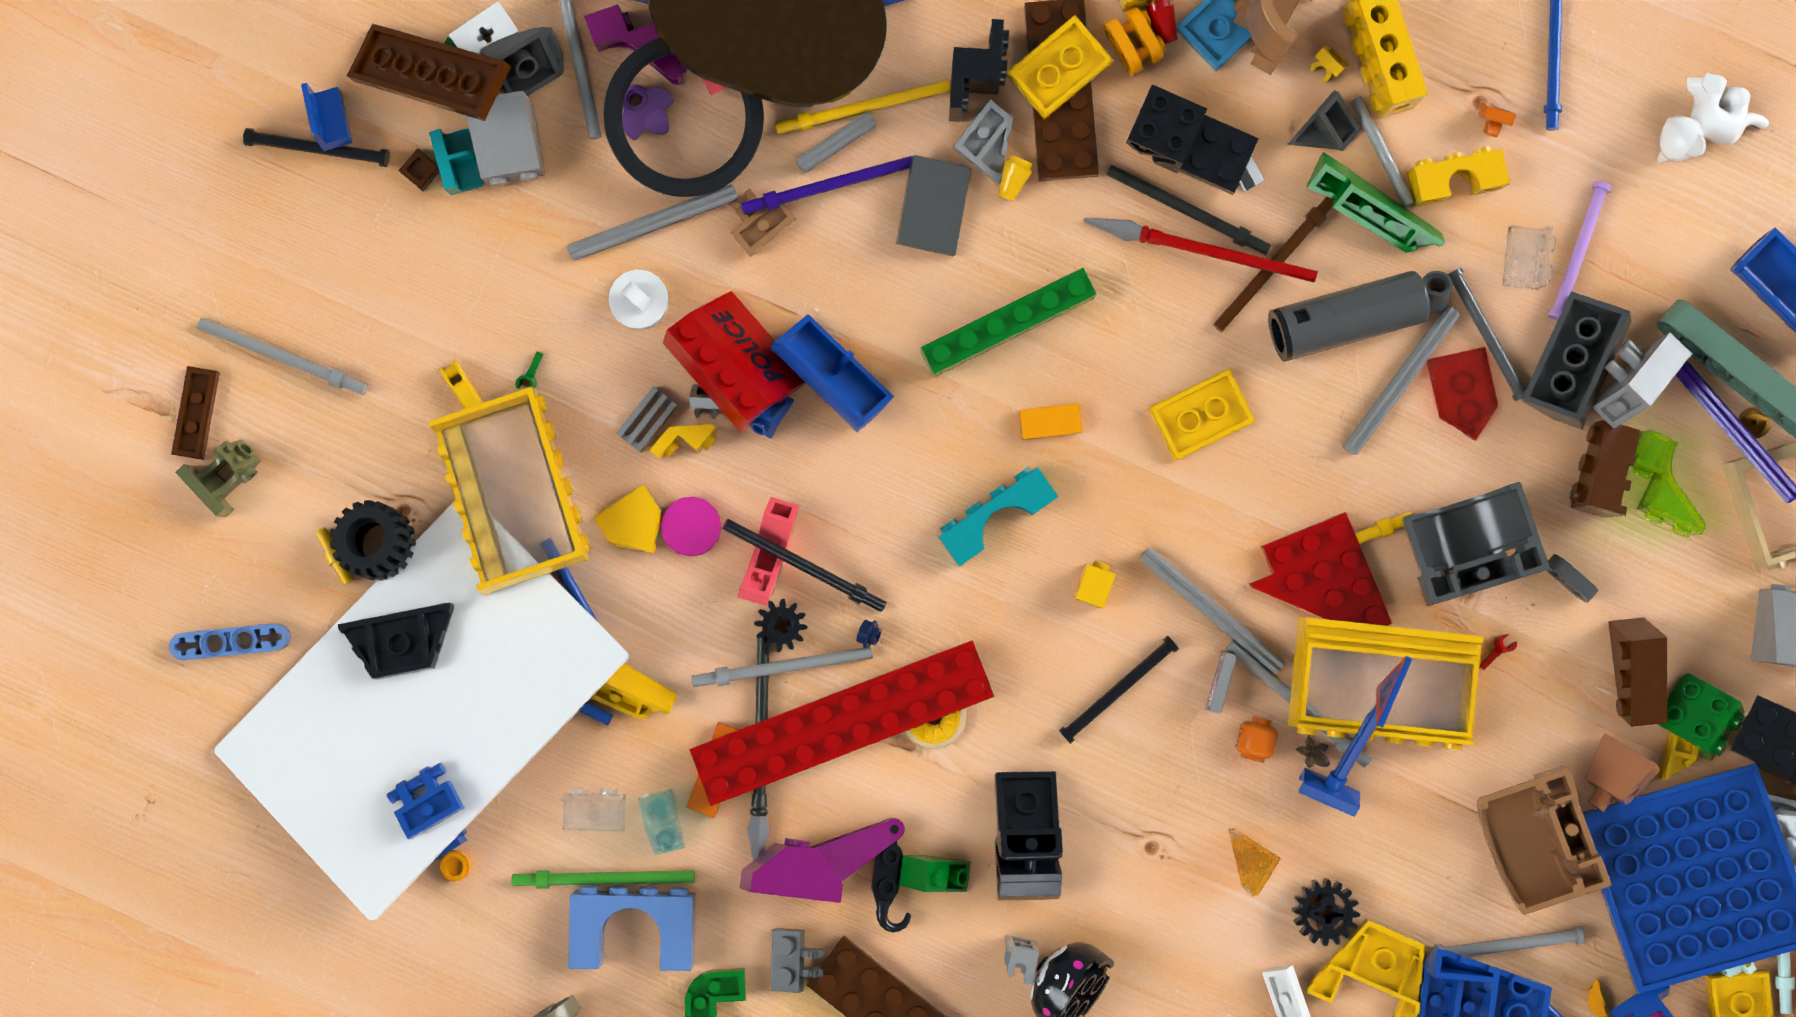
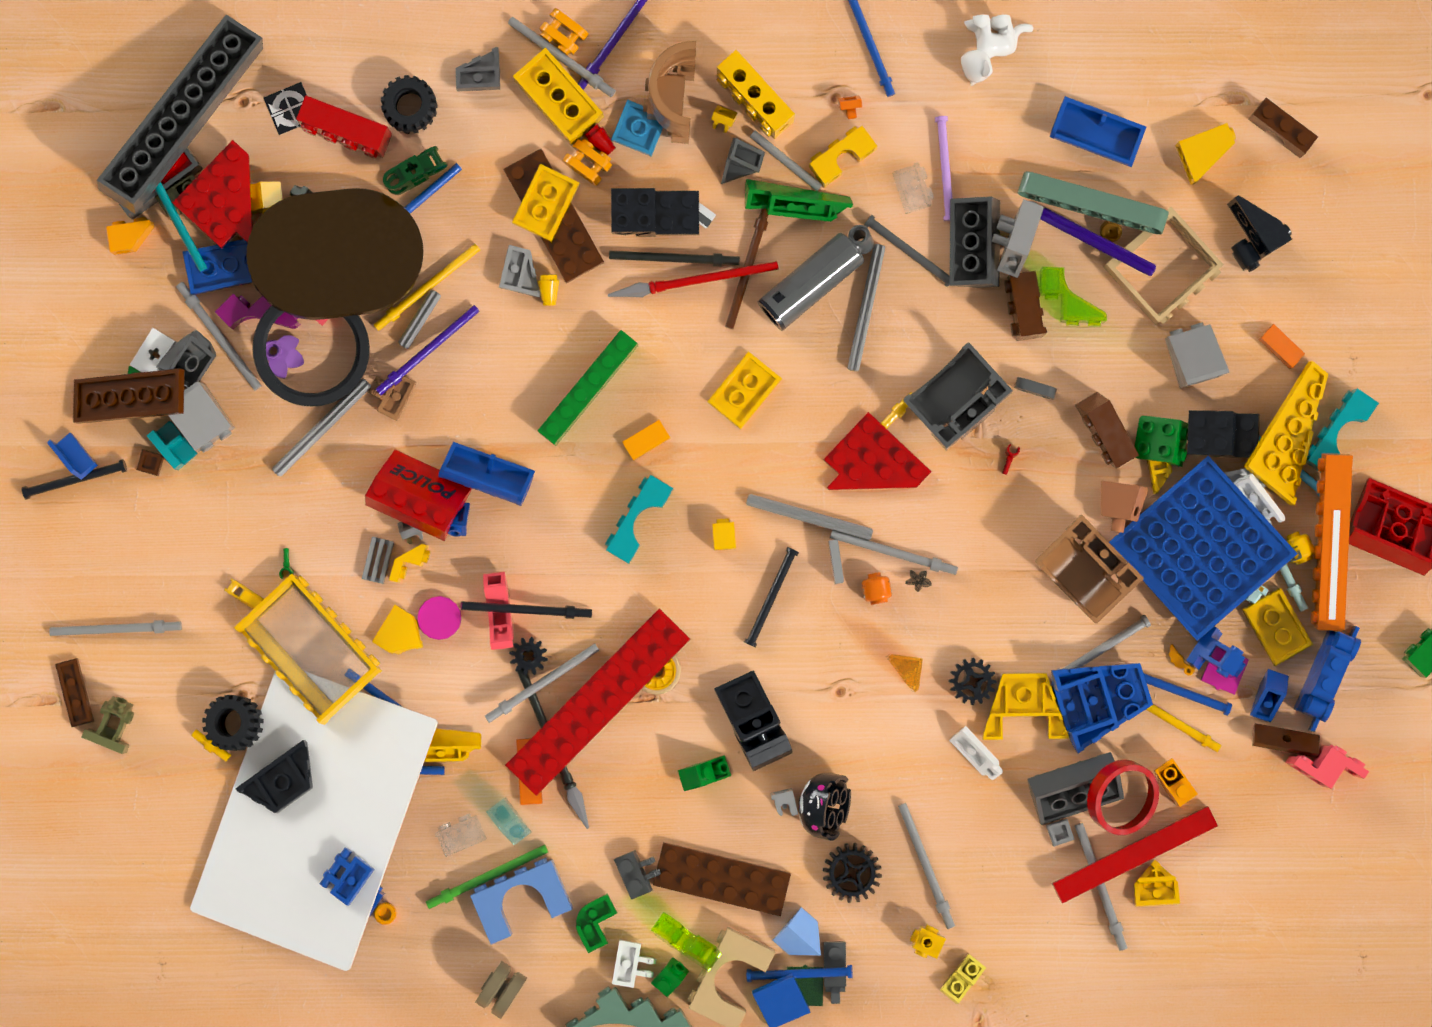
camera: 25 degrees left, 0 degrees up
(230, 641) = (166, 831): medium blue beam -> none
(638, 299) = (335, 483): white tile -> none
(818, 870) = (627, 805): magenta slope -> none
(868, 633) = (589, 635): dark blue plate -> none
(933, 205) = (503, 332): dark grey tile -> none
(978, 70) = (492, 230): black bracket -> none
(1332, 789) = (940, 599): blue piece -> none
(1346, 661) = (943, 512): window -> none
(1463, 390) = (910, 295): clear red tile -> none

